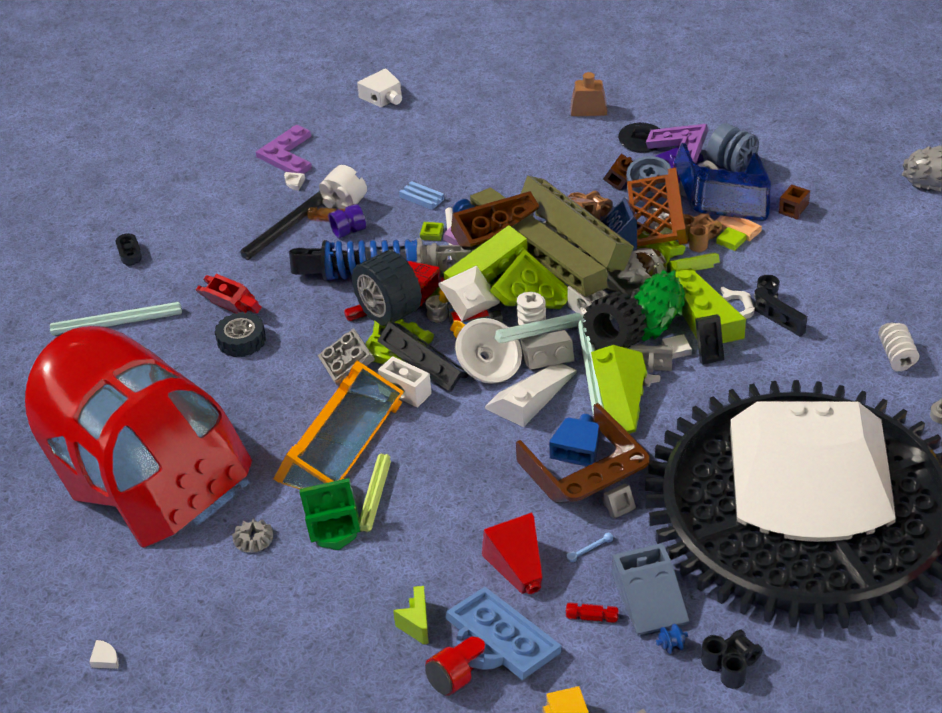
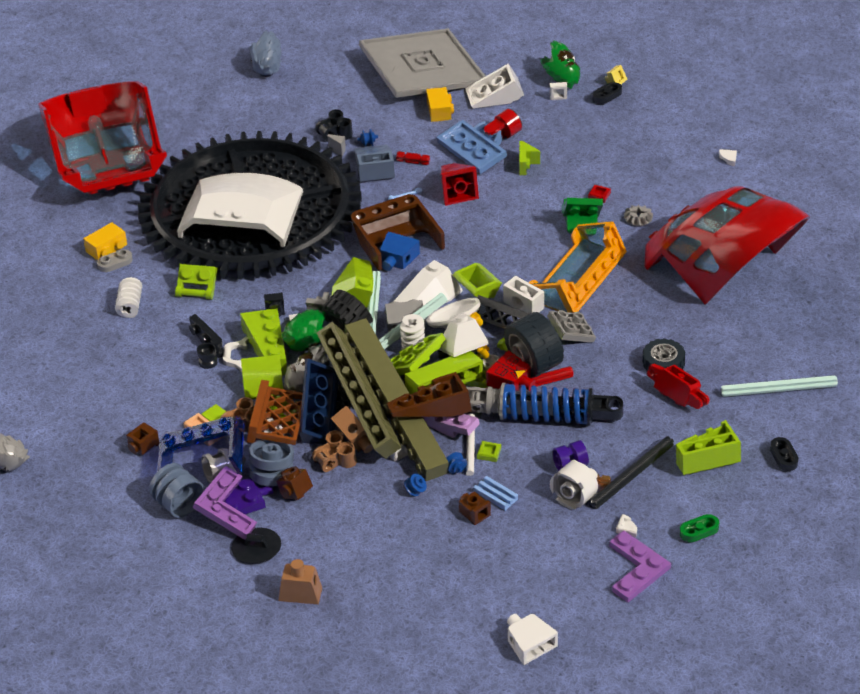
camera: 175 degrees left, 0 degrees up
(205, 234) = (709, 450): none -> lime wedge
(225, 179) = (697, 528): none -> green plate
(306, 570) = (599, 192): none -> red tile
(374, 492) = (550, 235): yellowish green axle -> none
(439, 175) = (472, 504): none -> reddish brown brick
(477, 412) = (485, 282): none -> lime tile
(501, 187) = (415, 484): none -> blue wheel
(717, 619) = (337, 144): none -> light grey slope
(824, 373) = (197, 276): none -> lime plate

